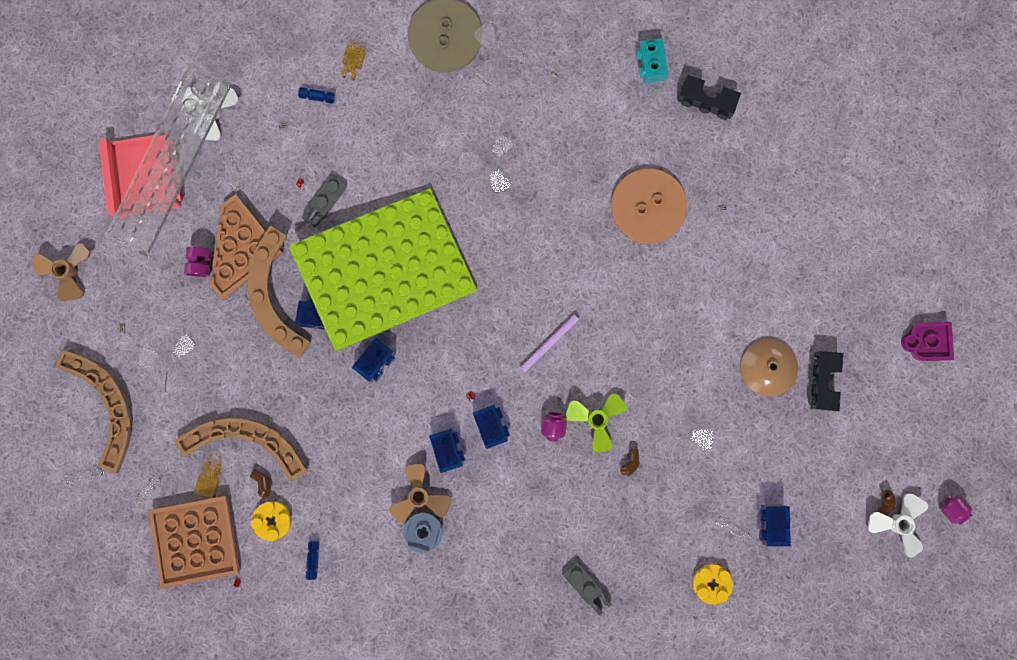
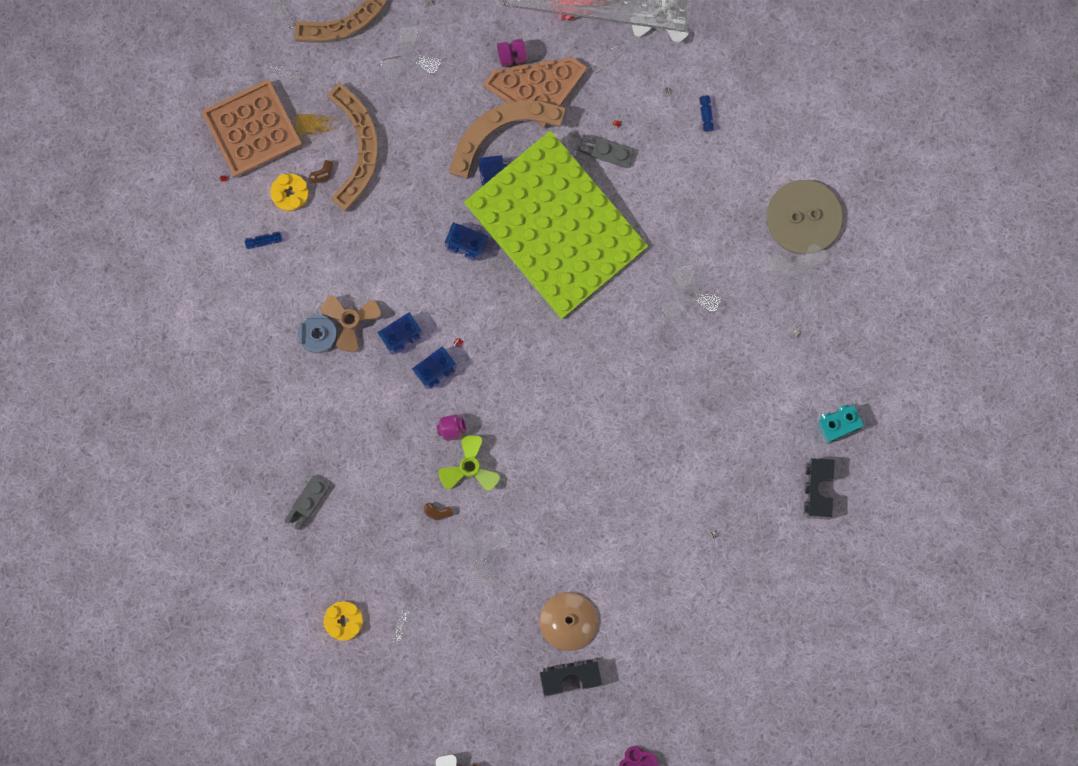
camera: 70 degrees right, 5 degrees down
(353, 59) = (753, 137): clear yellow plate -> none
(549, 343) = (530, 402): lavender bar -> none
(648, 206) = (693, 461): nougat plate -> none
(775, 525) = (416, 663): clear blue brick -> none

